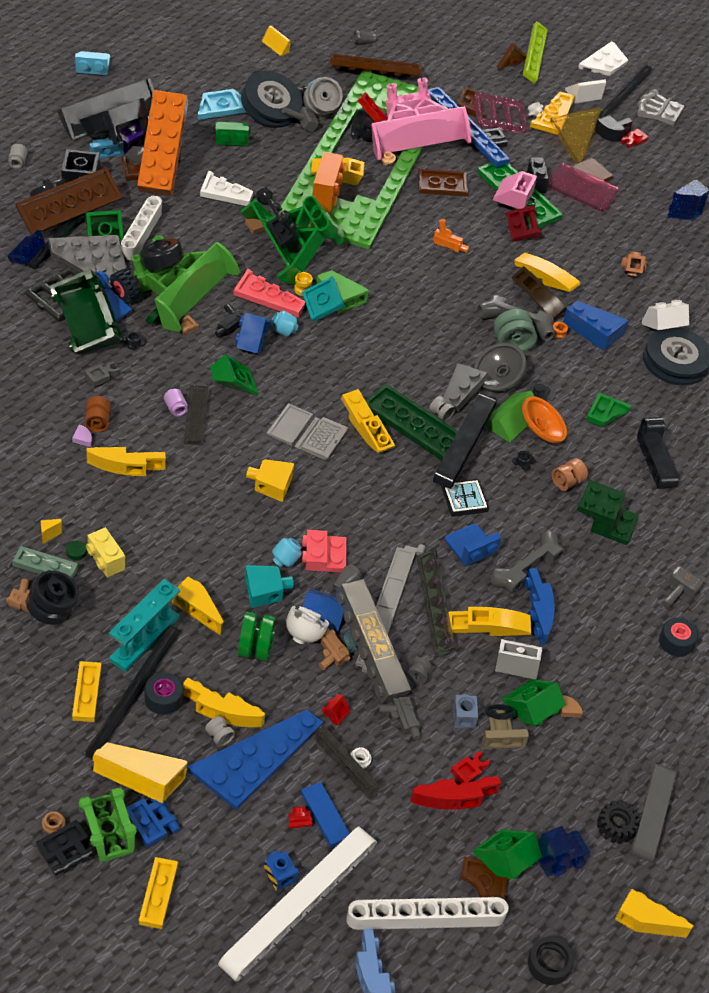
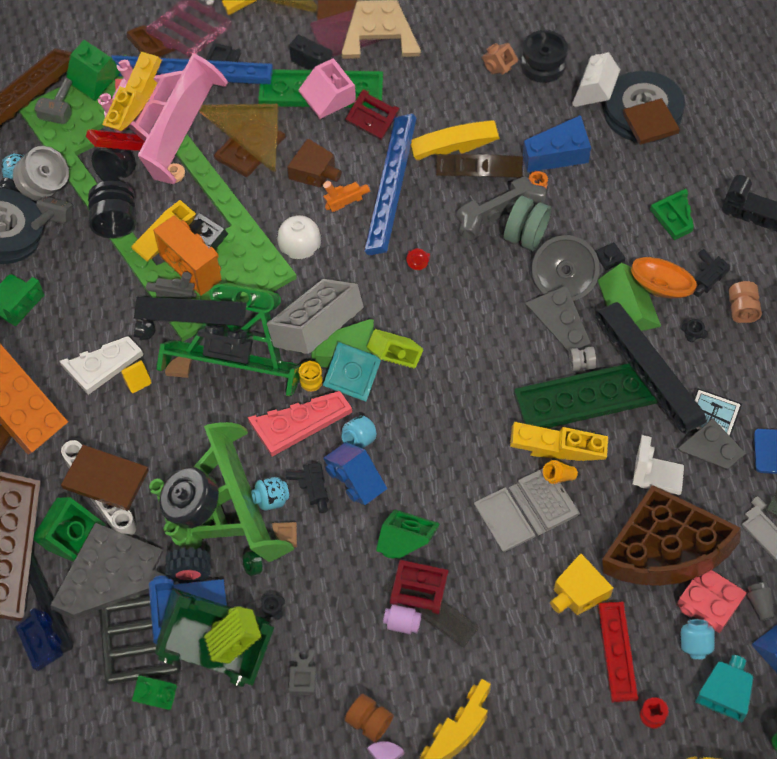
camera: 45 degrees left, 10 degrees up
(35, 314) = (154, 692): none -> green bracket
(93, 318) = (232, 635): none -> lime brick
(147, 220) = (105, 477): none -> reddish brown tile
(205, 301) = (270, 493): none -> medium azure head
(208, 394) = (421, 579): none -> dark red plate
(216, 554) = (652, 718): none -> red wheel
(230, 208) = (136, 377): none -> yellow slope
(245, 520) = (617, 652): none -> red tile
(290, 201) = (190, 311): none -> black tile
(301, 189) = (173, 288): none -> dark grey piece
(325, 134) = (111, 209): none -> black wheel
(341, 504) = (669, 542): none -> reddish brown brick
(342, 259) = (315, 316): none -> light grey brick
(344, 430) = (558, 472): none -> light orange cone
(355, 189) = (209, 231): none -> black plate
(356, 308) = (394, 348): none -> lime brick
(374, 82) = (56, 109): none -> dark grey piece
(387, 473) = (656, 472): none -> white bracket
(398, 233) = (299, 237): none -> white cylinder
(404, 99) = (135, 95): none -> yellow slope
(409, 81) = (91, 70): none -> green slope
(438, 296) = (418, 259): none -> red plate
(440, 505) = (713, 446): none -> dark grey wing
(454, 174) = (250, 126): none -> clear yellow tile
(457, 214) = (313, 165): none -> reddish brown torso
(481, 258) = (390, 185): none -> blue tile
(578, 450) = (711, 272): none -> black piece
(597, 192) = (379, 21): none -> tan wing
(660, 284) = (544, 56): none -> black wheel
(662, 358) = (651, 121): none -> reddish brown tile

